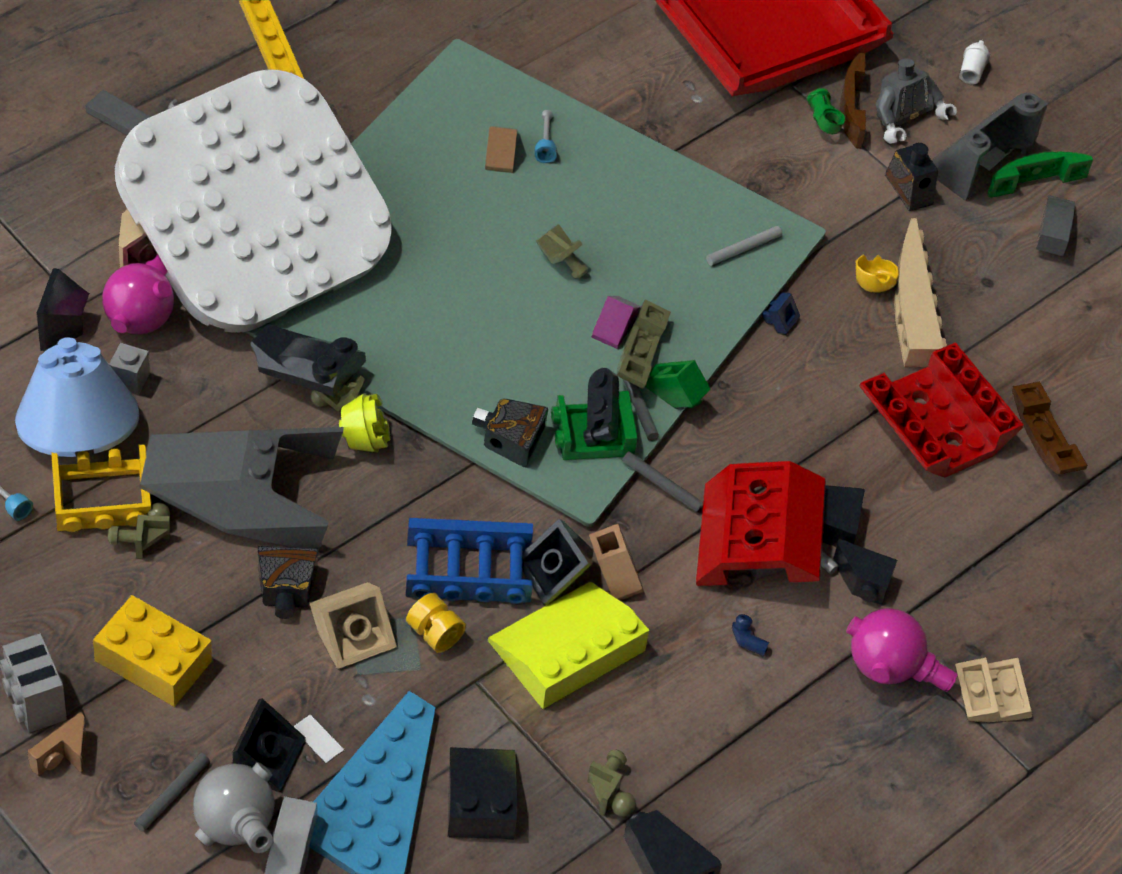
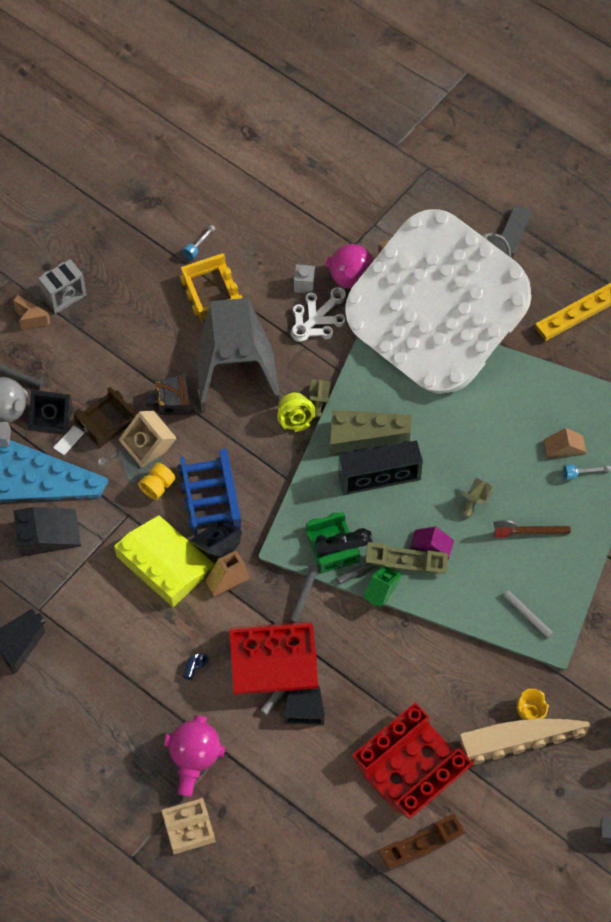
camera: 85 degrees right, 10 degrees up
(60, 310) = (332, 229): black slope -> none
(75, 402) = (261, 257): light blue cone -> none
(148, 531) = (185, 316): olive piece -> none
(152, 650) = (102, 340): yellow brick -> none
(171, 341) = (318, 317): none -> white plant
(296, 674) = (105, 417): none -> dark brown panel
(307, 359) = (335, 366): black slope -> none
(422, 352) = (367, 430): none -> olive wedge
(494, 338) = (380, 467): none -> black brick
(512, 429) = (314, 495): torso -> none
(607, 784) = (61, 598): olive piece -> none
(623, 211) = (507, 527): none -> reddish brown piece
(782, 313) = (474, 649): dark blue tile -> none
(864, 571) = (260, 730): black slope -> none

